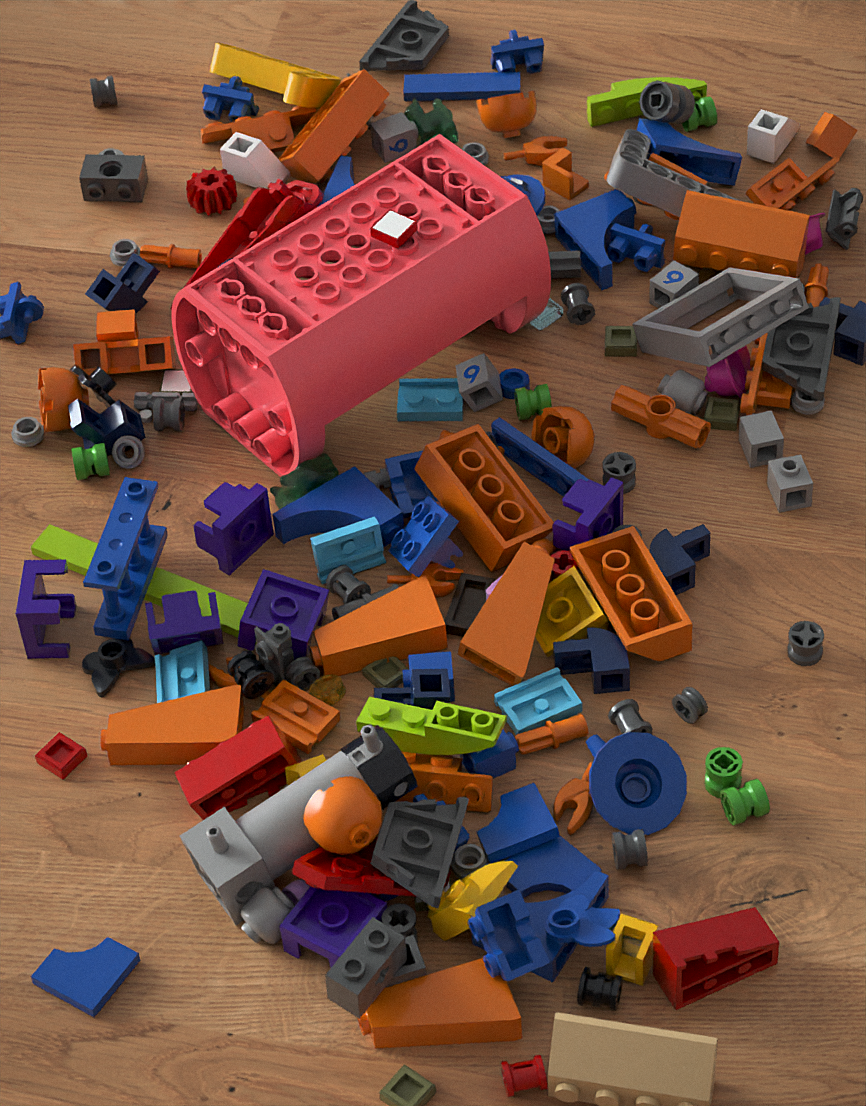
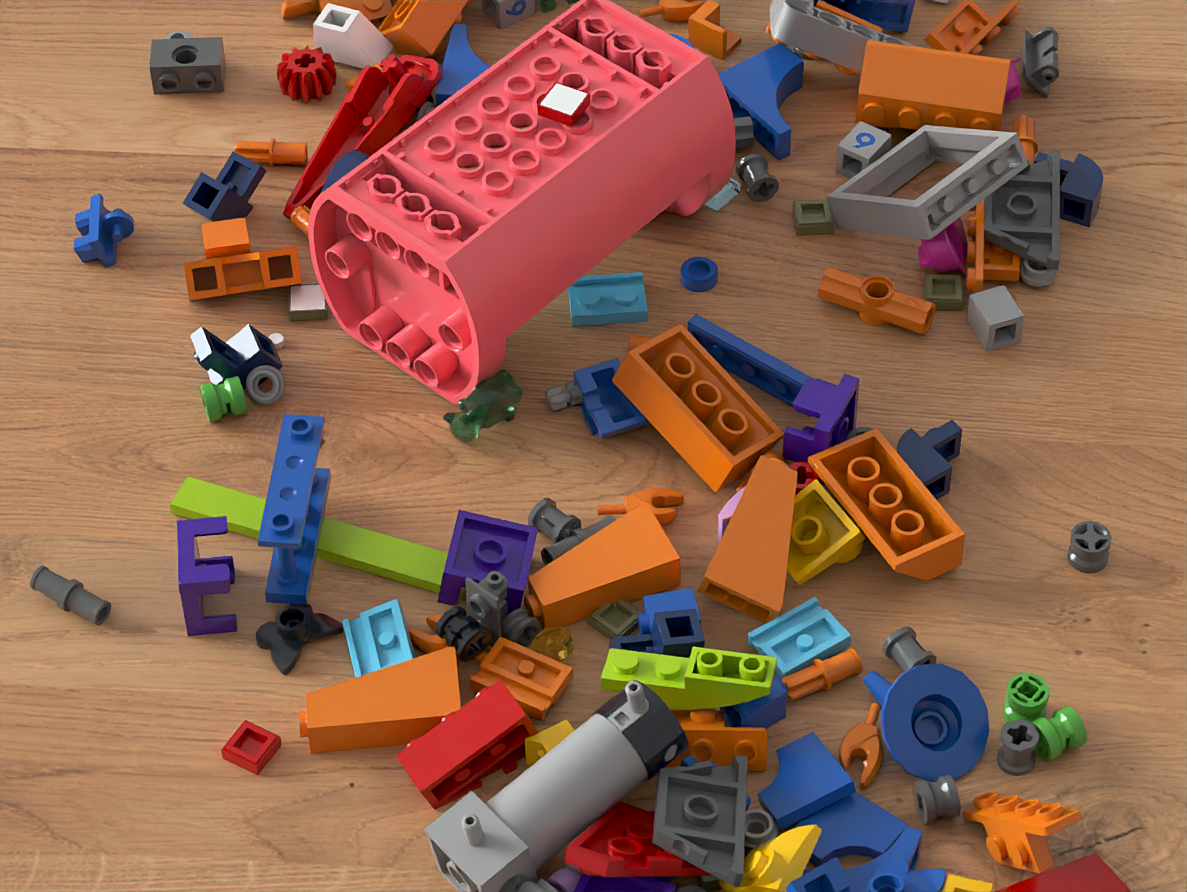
camera: 10 degrees left, 0 degrees up
(27, 432) = (140, 369): light grey plate -> none
(58, 390) = (173, 320): orange cylinder -> none
(98, 381) = (219, 308): black animal -> none
(122, 251) = (215, 151): light grey plate -> none
(144, 400) = (297, 322): light grey axle -> none
(168, 414) = (305, 337): dark grey wheel -> none
(183, 622) = (375, 579): dark purple panel -> none
(240, 529) = (420, 464): dark purple panel -> none
(338, 504) = (533, 429): blue arch -> none
(344, 816) = (616, 790): orange cylinder -> none
(353, 545) = (552, 475): medium azure plate -> none
(426, 538) = (638, 459): blue plate -> none
(466, 603) = (697, 532): dark brown tile -> none
(479, 382) = (662, 275): light grey brick -> none
(531, 402) = (724, 294): bright green wheel -> none
(564, 434) = (774, 327): orange cylinder -> none
(599, 654) = (862, 579): dark blue brick -> none
(621, 467) = (840, 360): dark grey wheel -> none
(637, 245) = (813, 107): blue hips -> none
(685, 390) = (900, 267): light grey head -> none
(687, 880) = (1018, 828): none -> orange bracket
(689, 705) = (973, 628): dark grey bush -> none
(708, 813) = (1017, 752): none -> dark grey bush
(789, 483) = (1037, 366): light grey brick -> none

